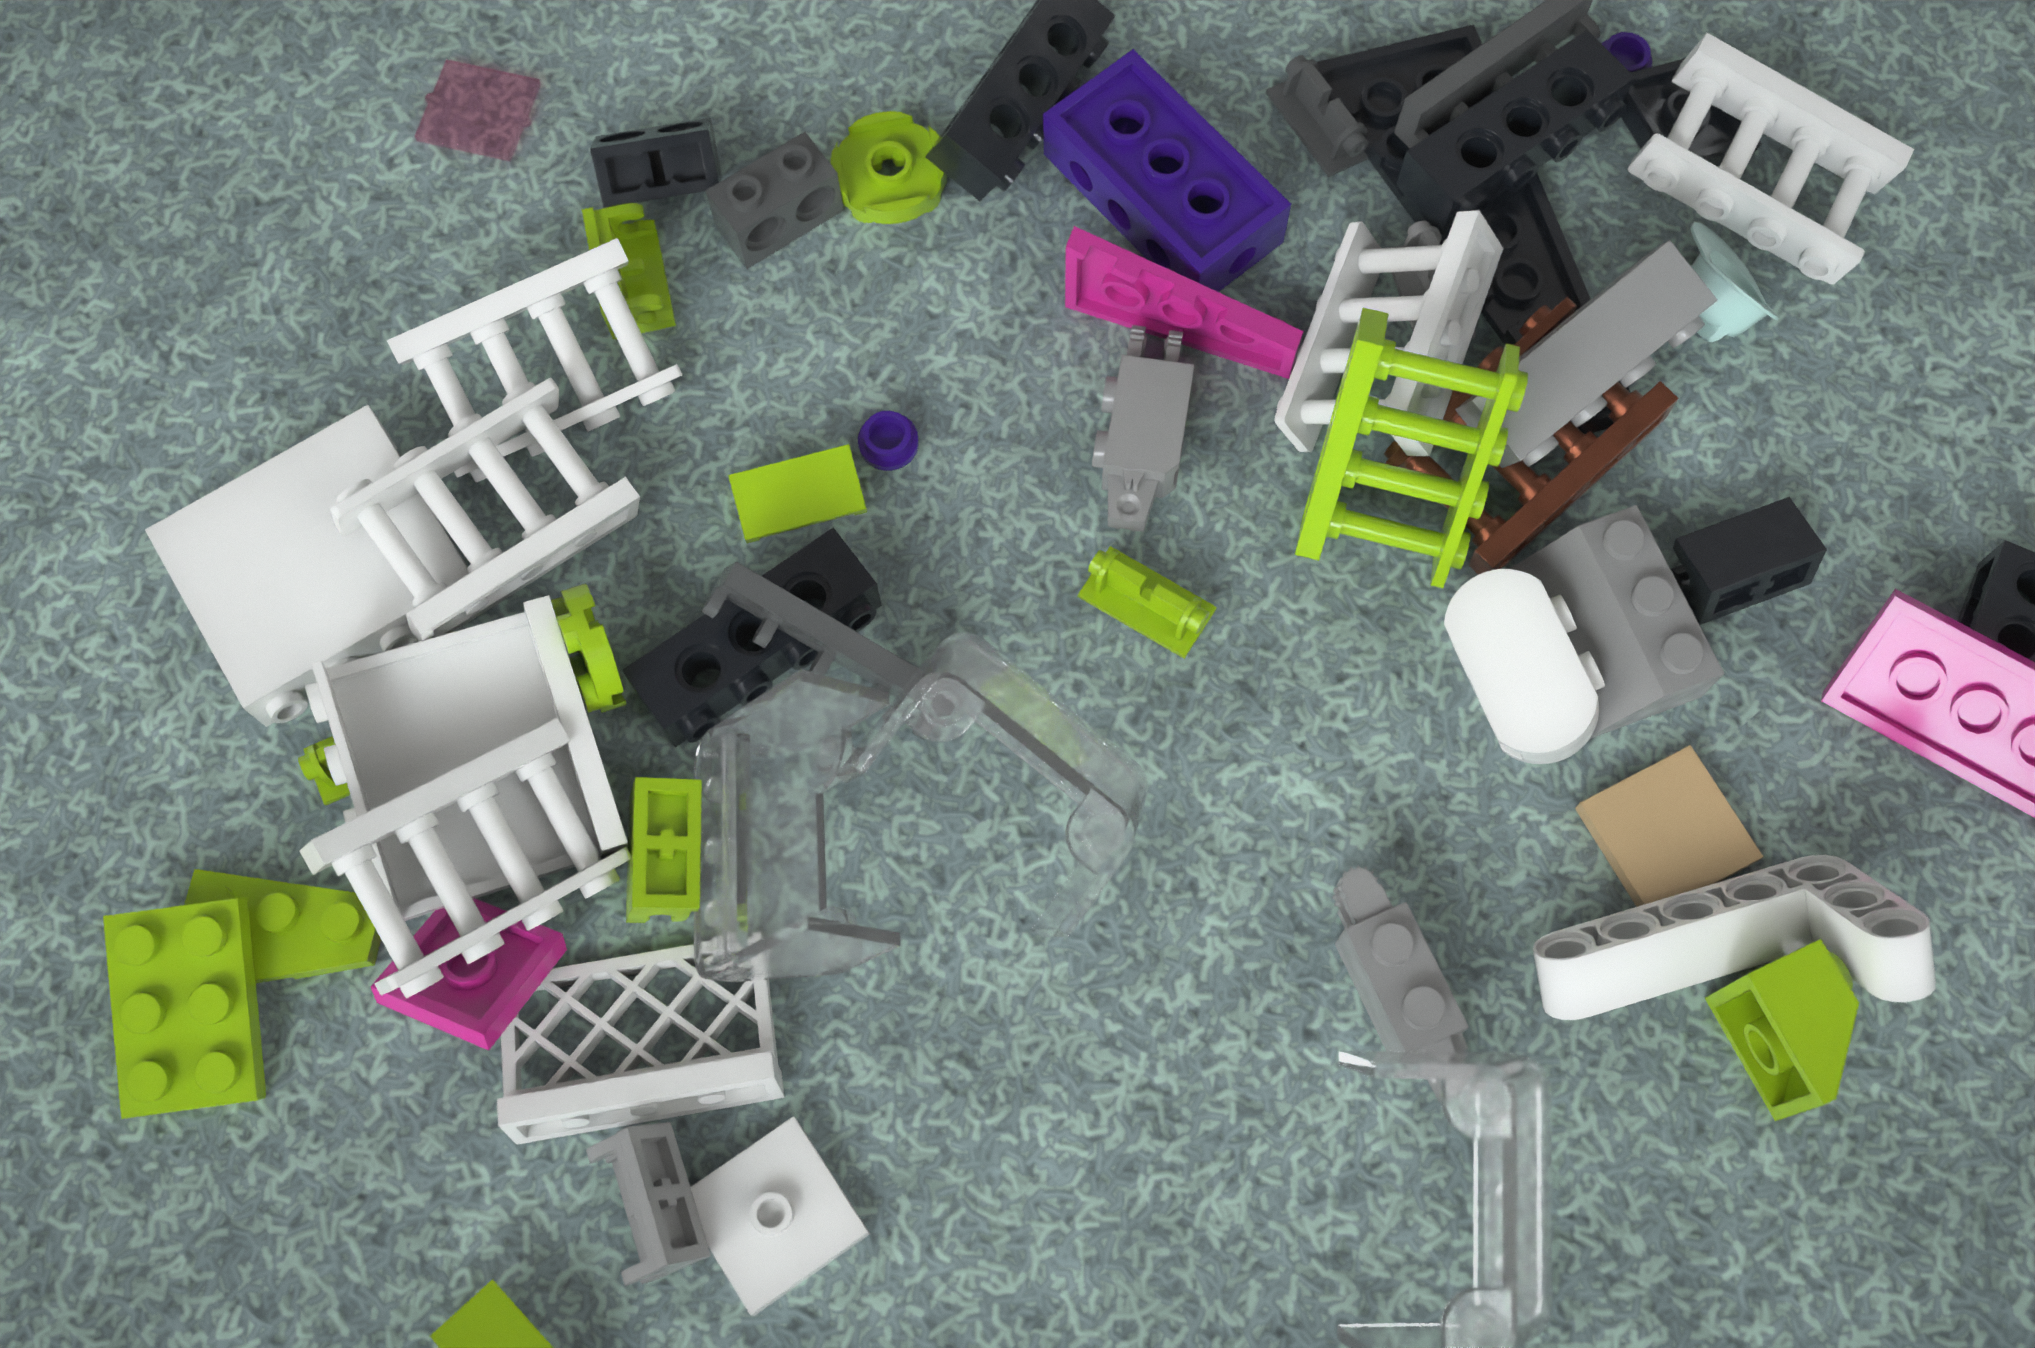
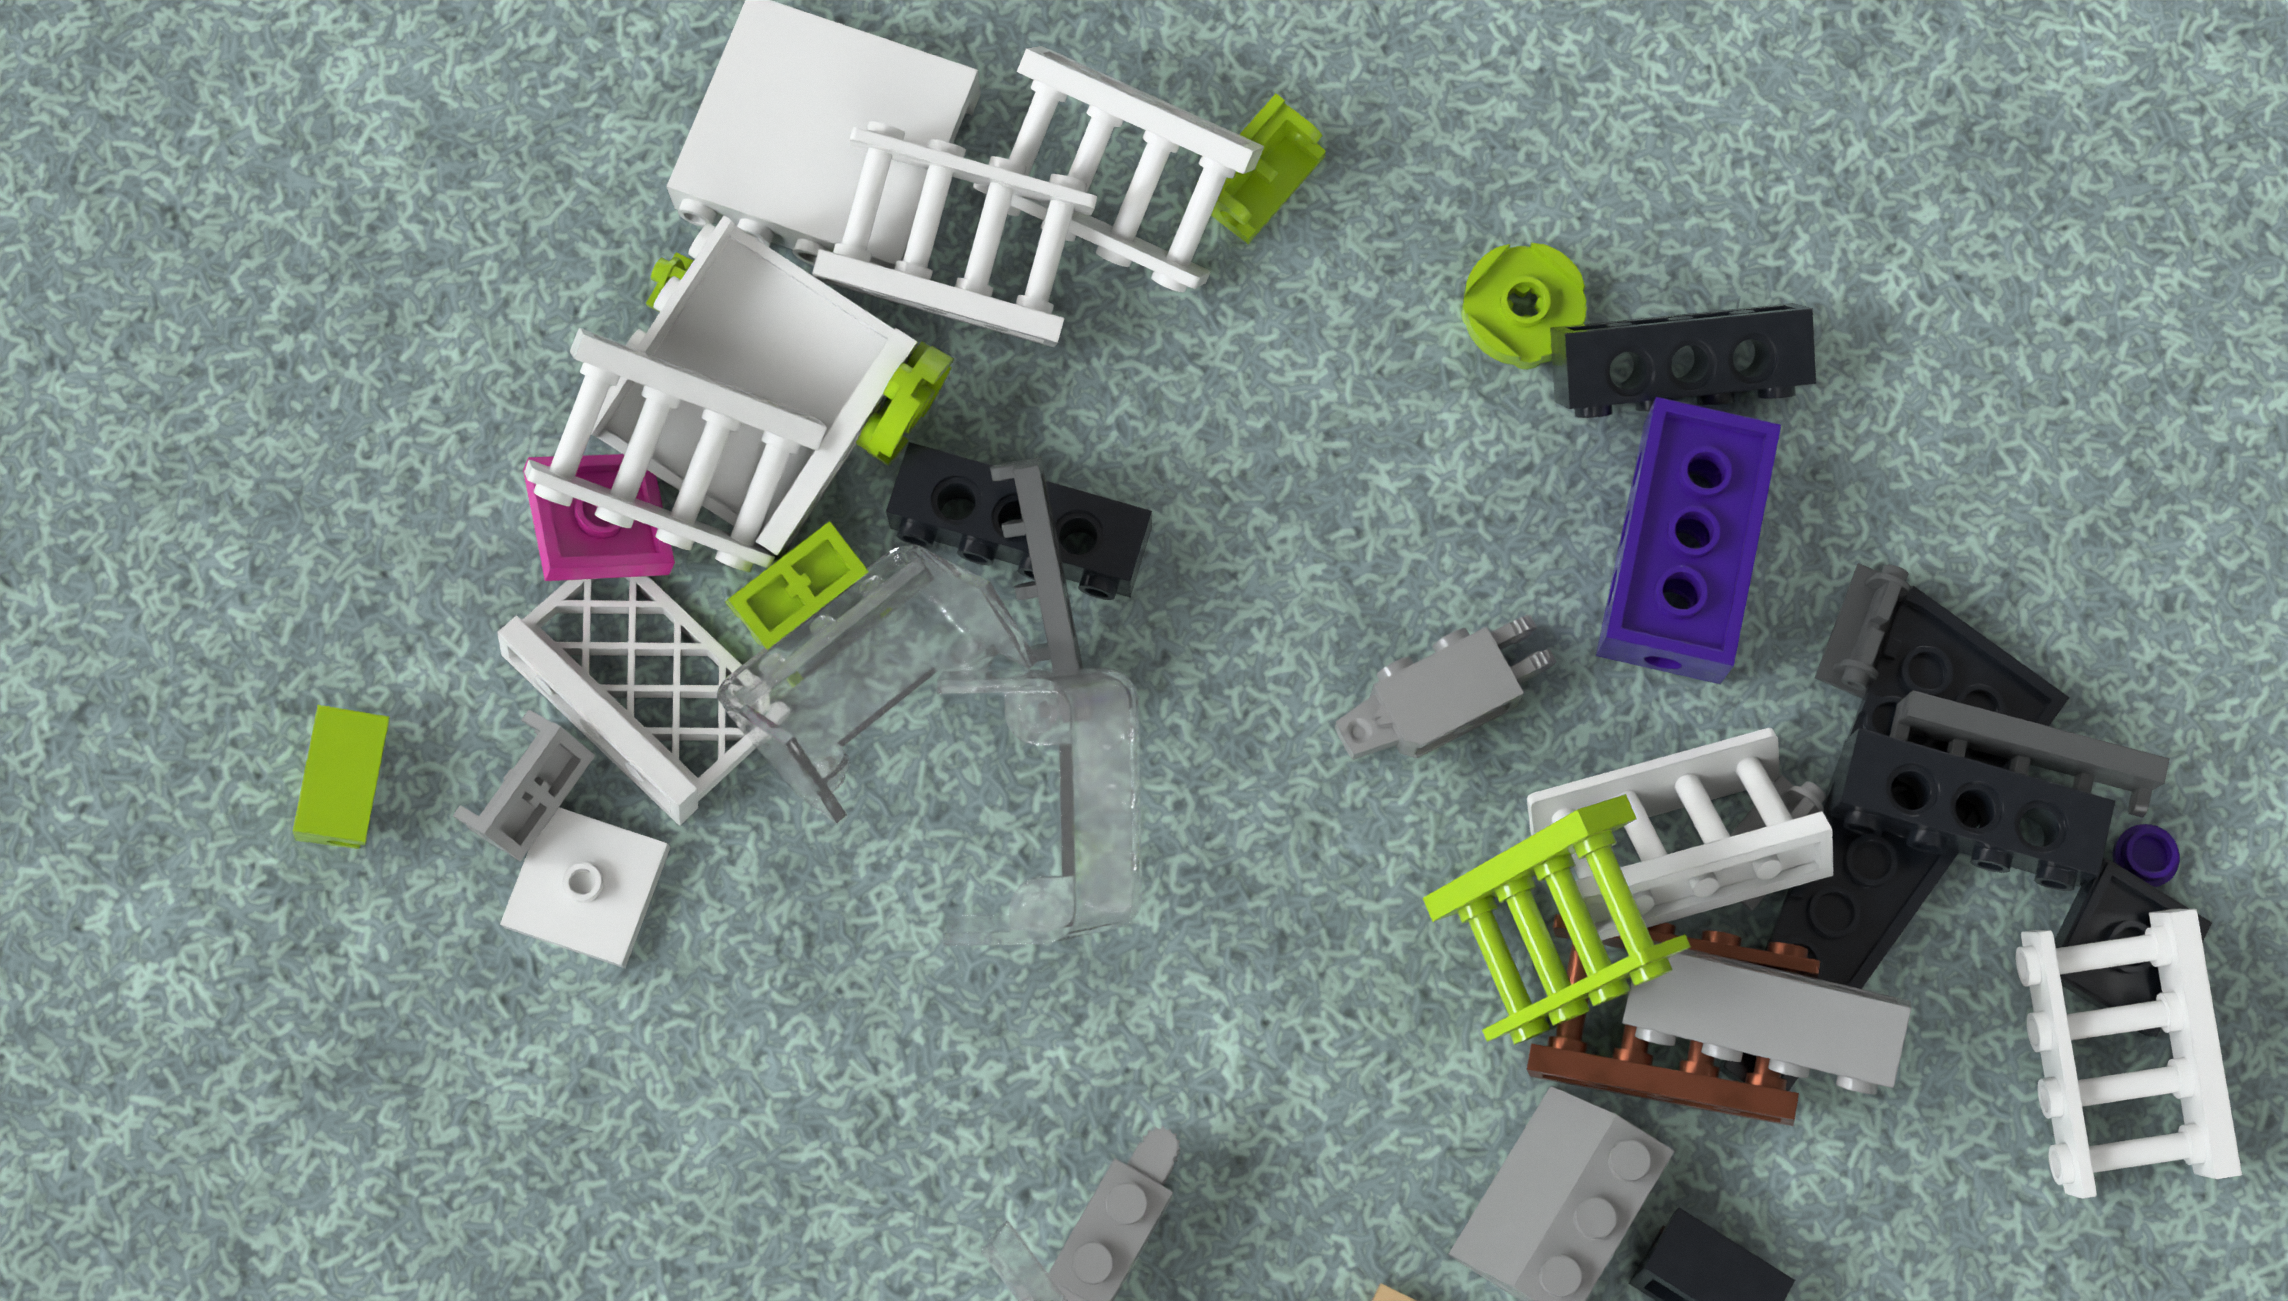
camera: 50 degrees right, 5 degrees up
(184, 1007) = (421, 334): lime plate -> none
(295, 926) = (514, 338): lime wing -> none
(656, 162) = (1370, 116): black brick -> none
(775, 200) = (1414, 237): dark grey brick -> none
(797, 493) = (1165, 461): lime hinge -> none
(888, 441) = (1273, 494): dark purple plate -> none
(1136, 291) = (1570, 640): dark pink wing -> none
(1146, 601) = (1292, 806): lime hinge -> none
(1524, 665) = (1461, 1154): white brick -> none
(1737, 294) = (1973, 1093): light aqua piece -> none

